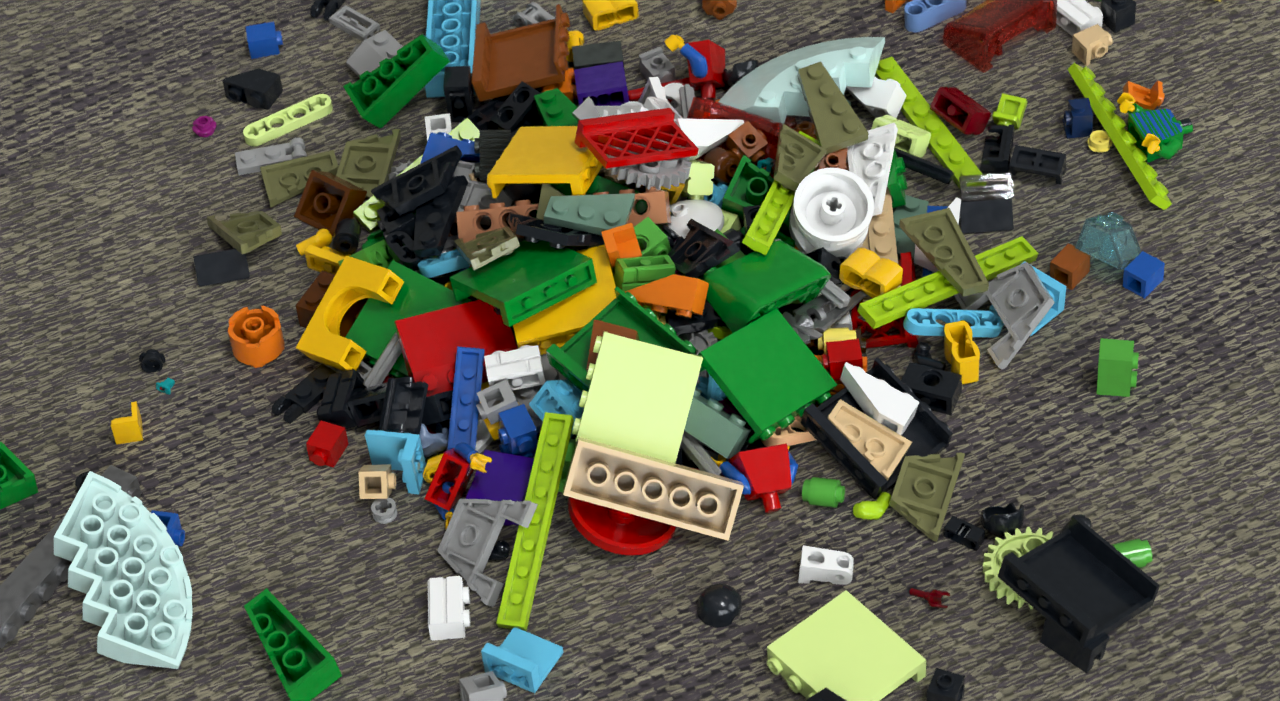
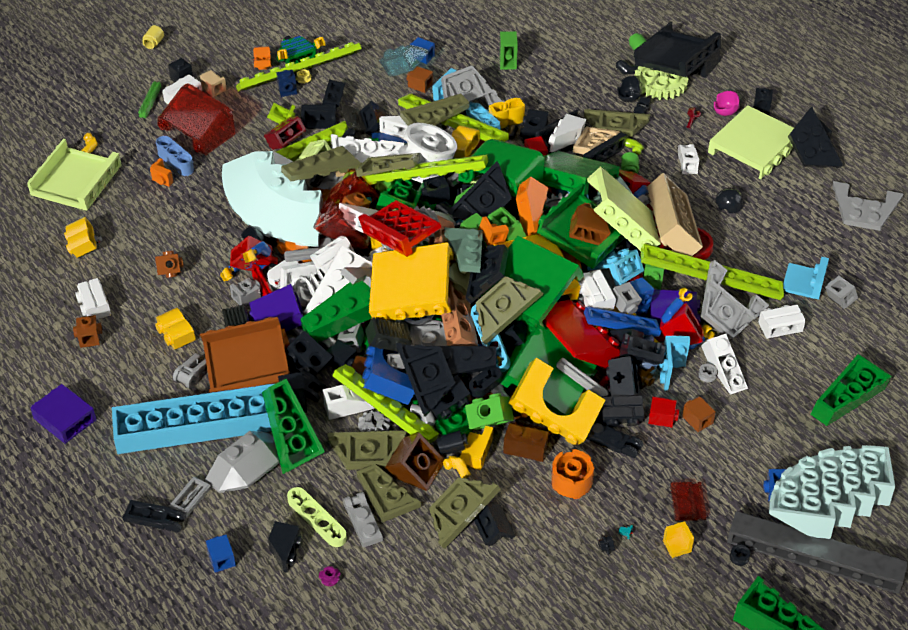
camera: 105 degrees left, 0 degrees up
(186, 451) = (687, 501): none -> clear red plate
(312, 480) = (698, 414): none -> dark orange brick
(376, 481) = (692, 374): tan brick -> none
(395, 524) = (720, 354): none -> white slope
(946, 643) = (727, 103): none -> dark pink hair

